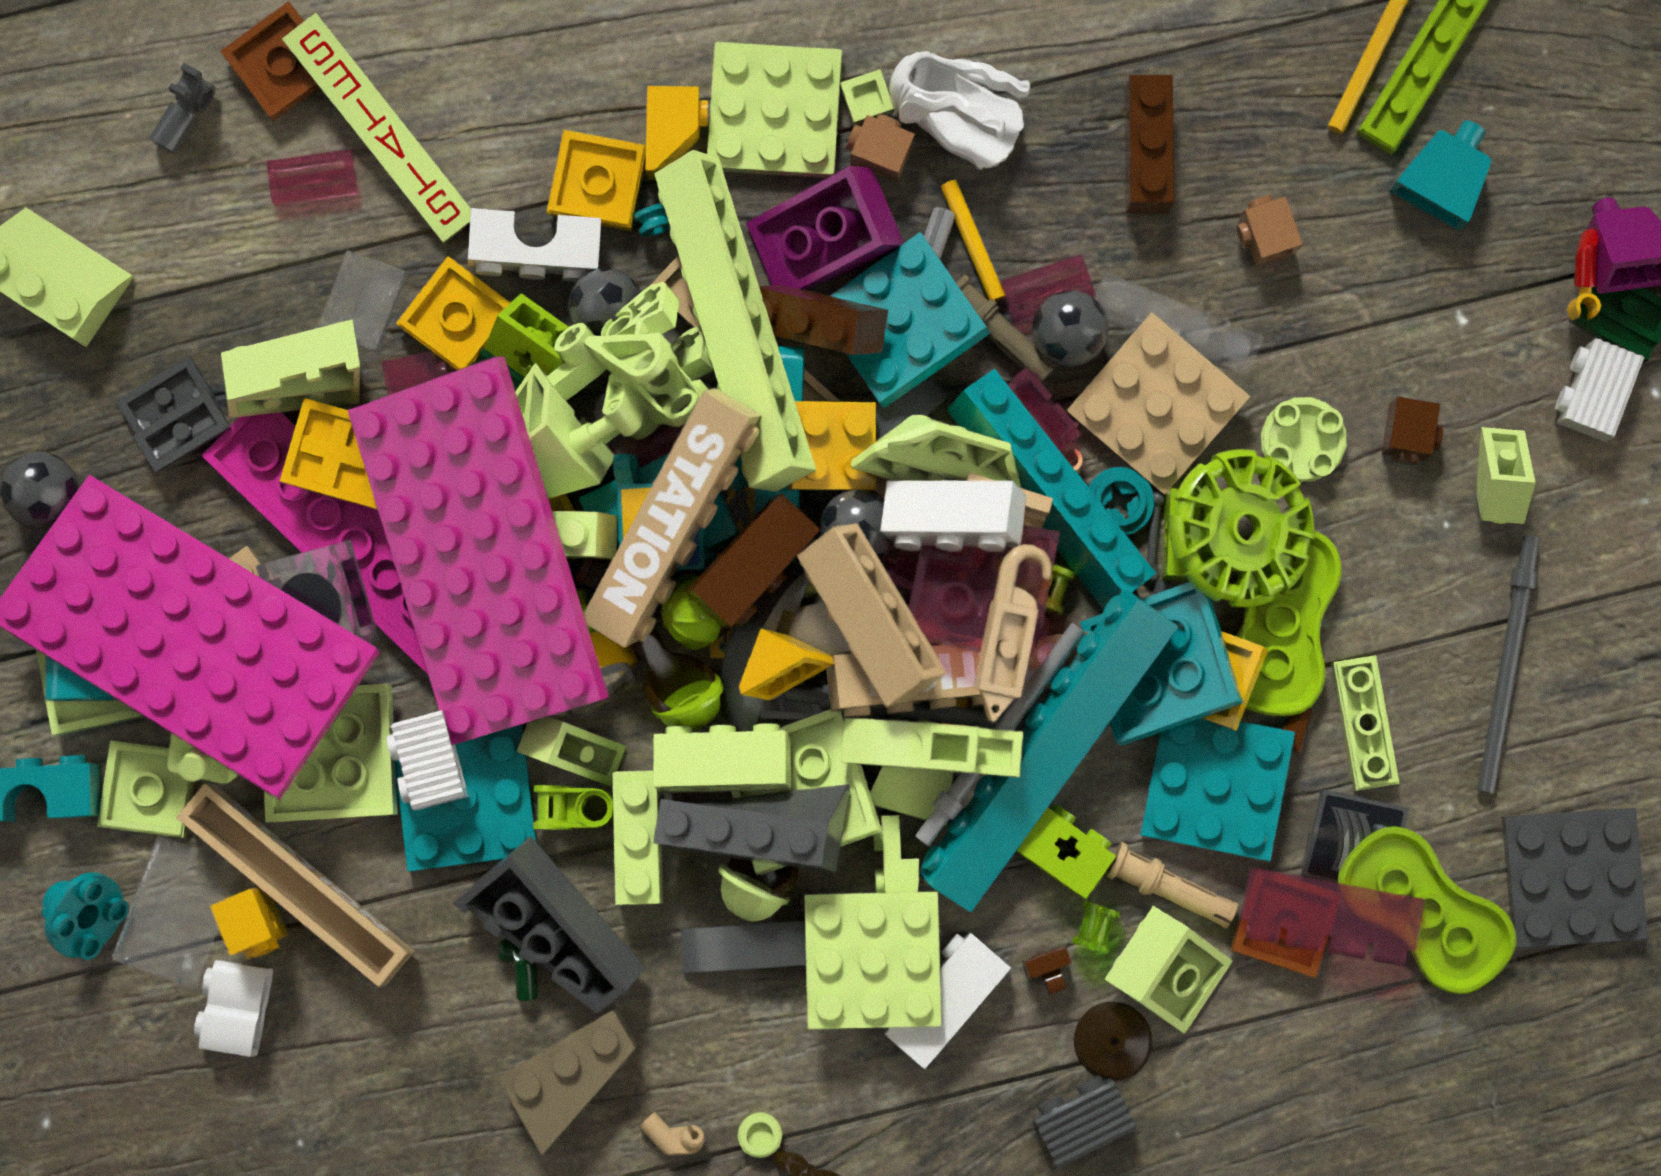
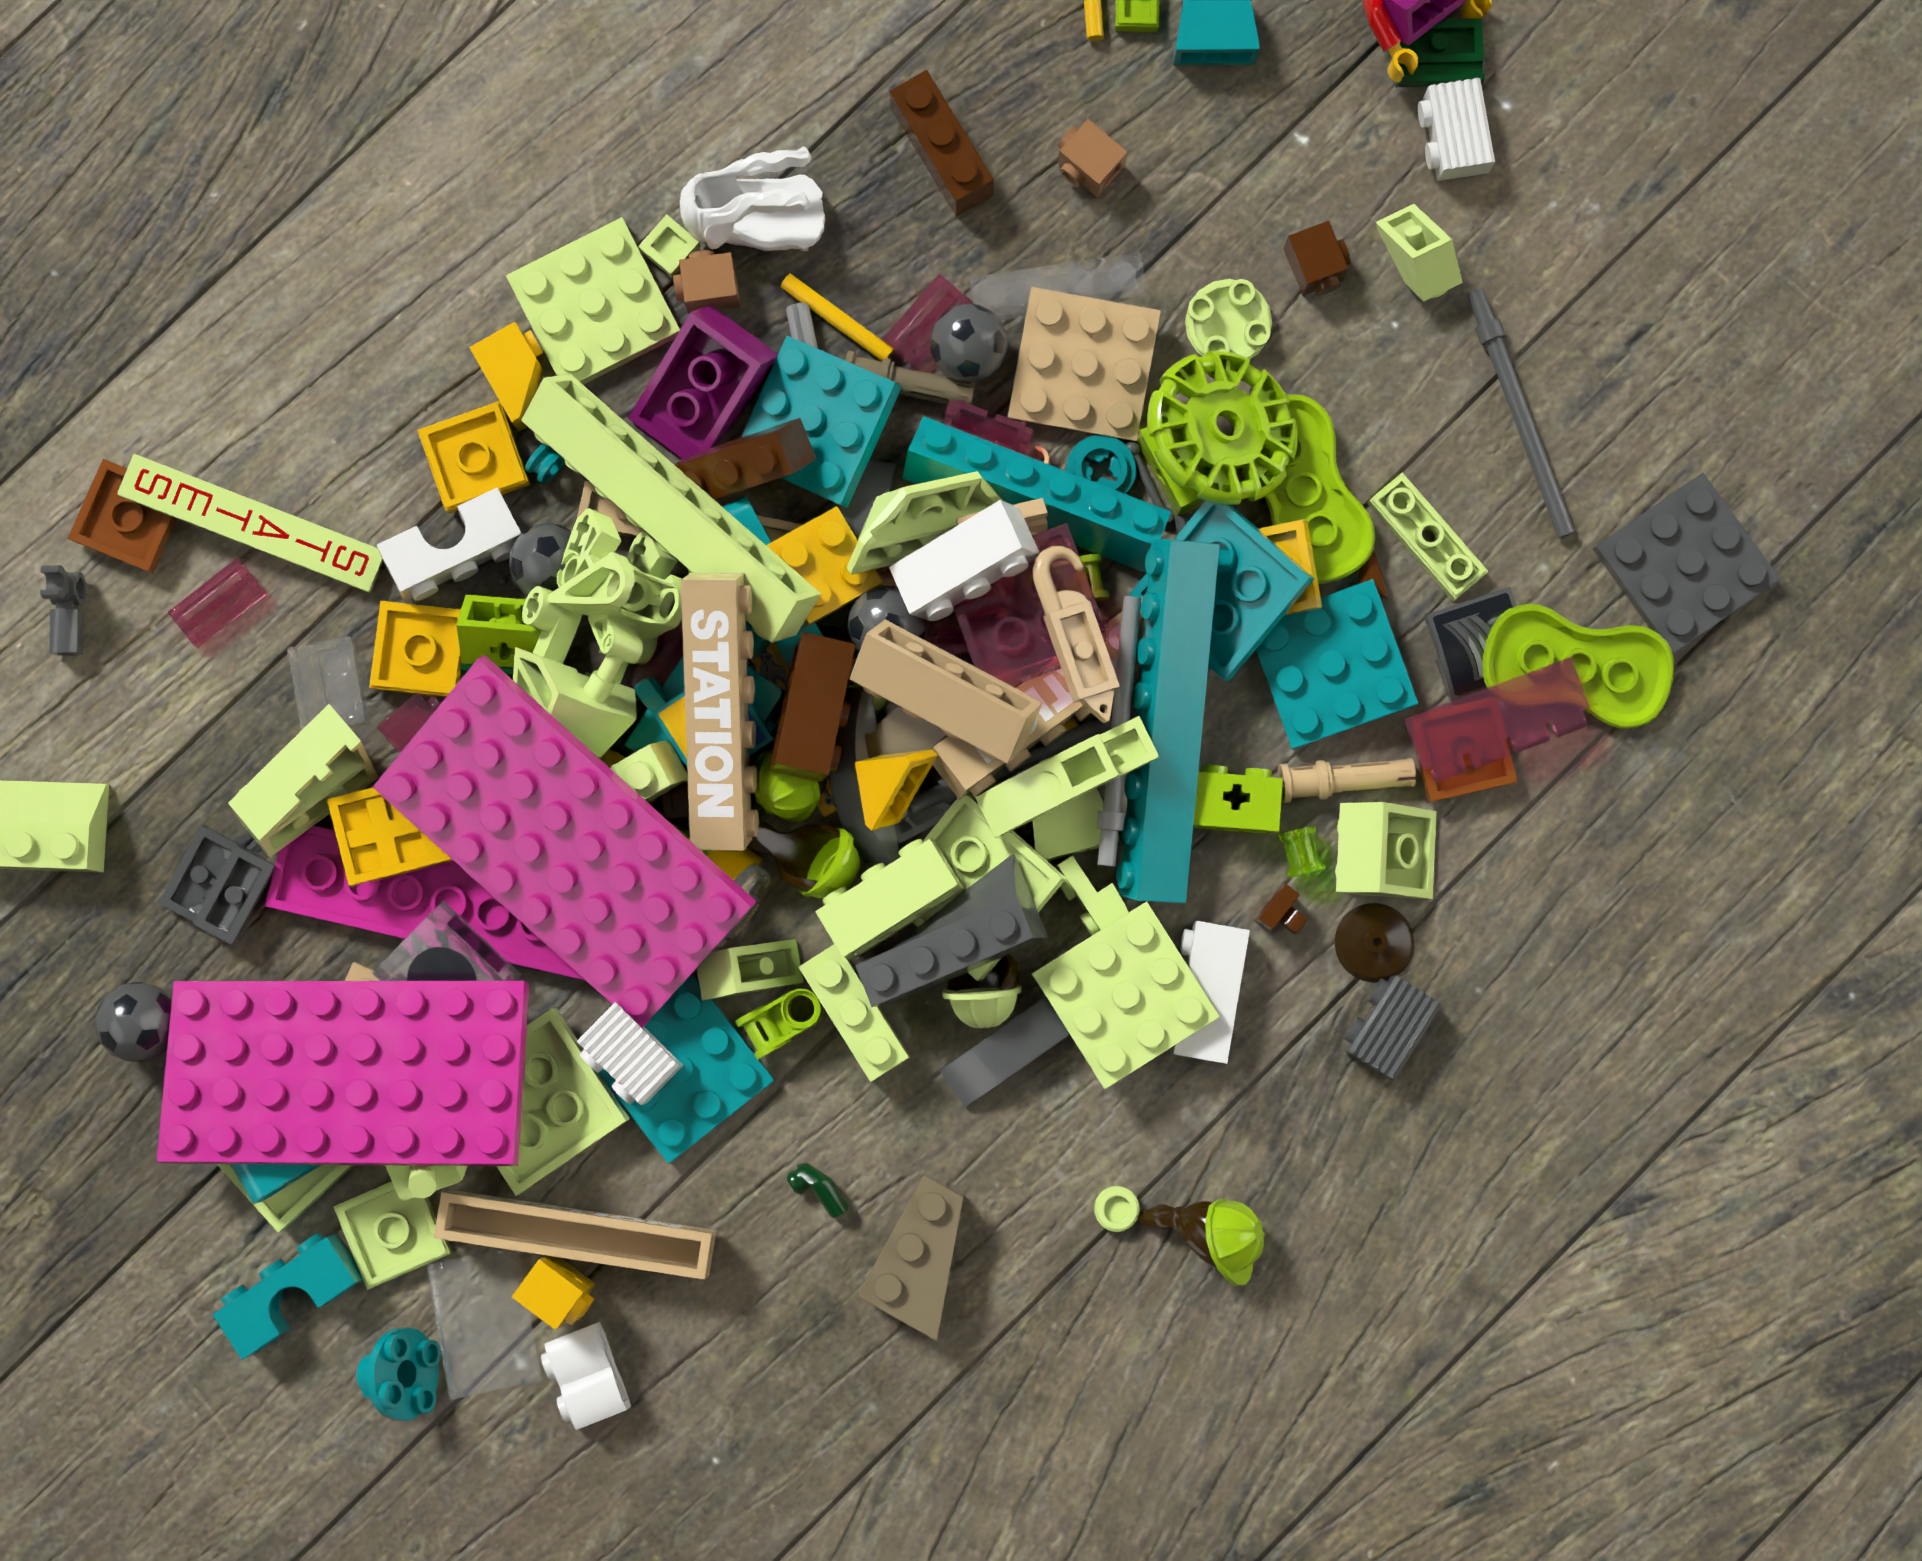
camera: 30 degrees left, 0 degrees up
(552, 925) = (825, 1134): dark grey wedge -> none
(674, 1140) = (1044, 1258): tan arm -> none

